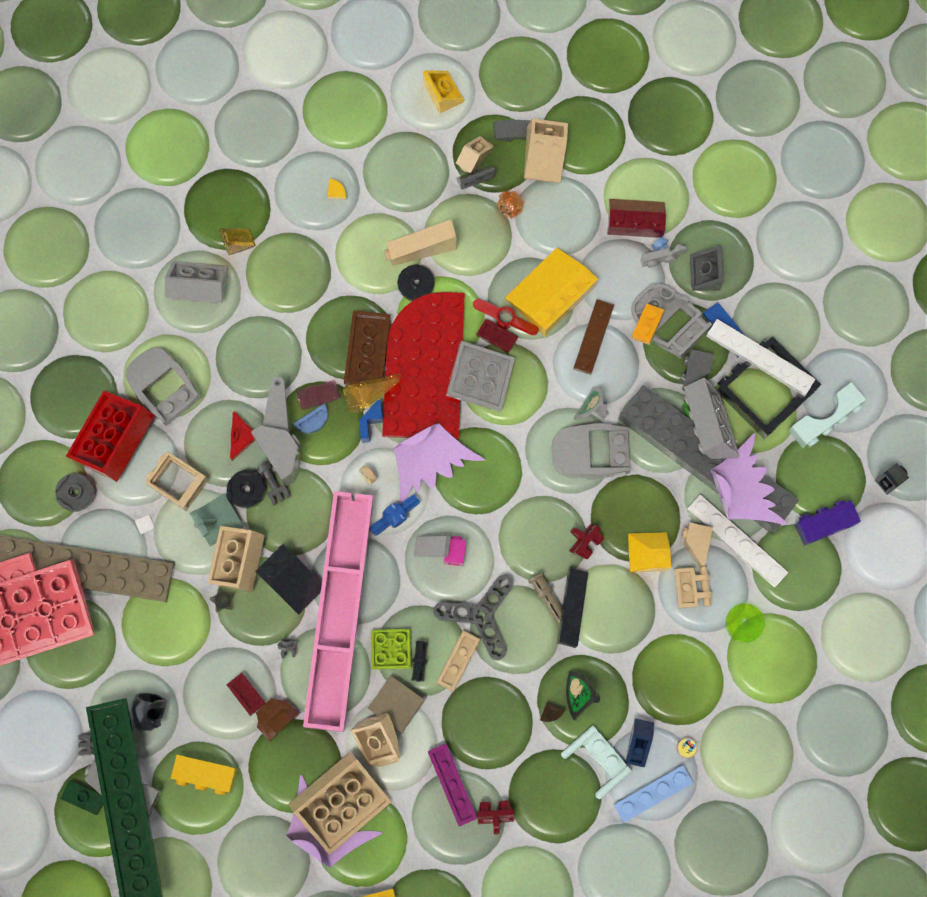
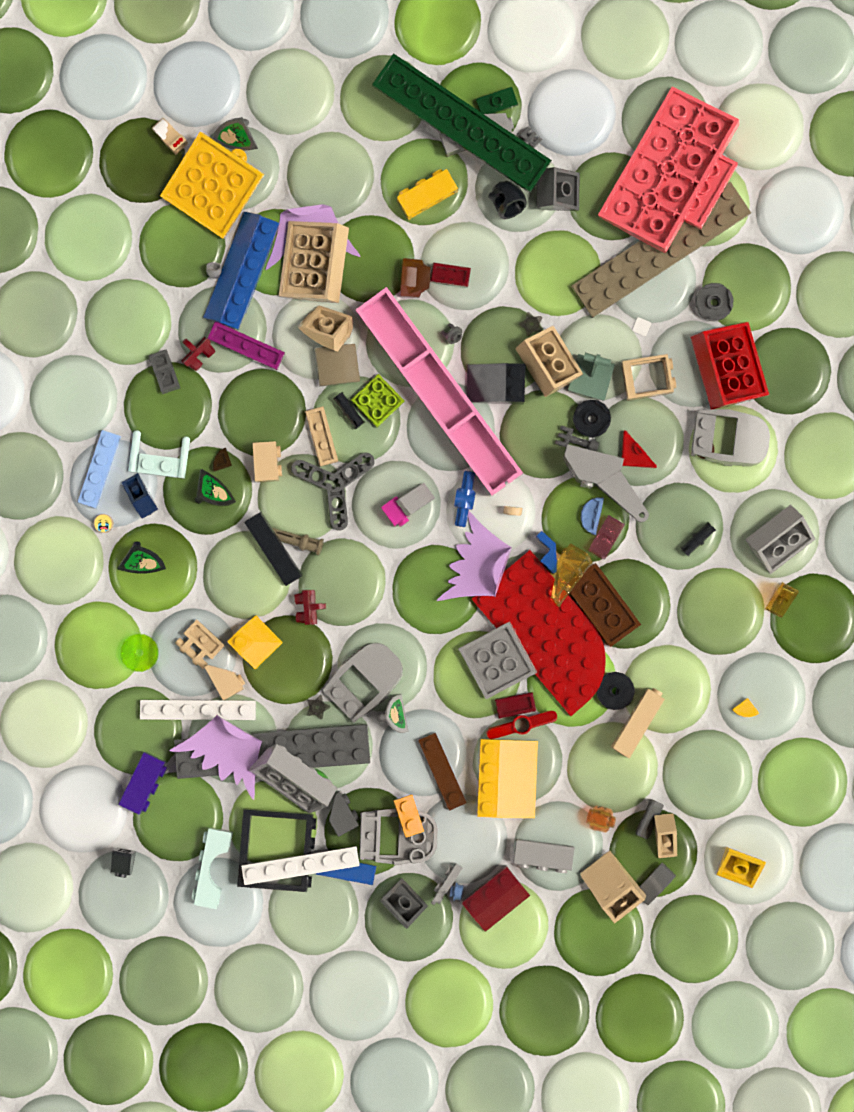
camera: 140 degrees right, 10 degrees up
(104, 682) = (558, 190): none -> dark grey slope
(254, 334) = (697, 539): none -> black pin
(401, 849) = (242, 270): none -> blue slope
(422, 870) = (213, 269): none -> light grey hinge
(518, 679) = (266, 461): none -> tan brick
(534, 824) = (164, 371): none -> dark grey slope
(574, 215) = (543, 855): none -> light grey brick
(644, 467) = (317, 702): none -> clear smoke plate
(682, 690) = (141, 561): none -> shield

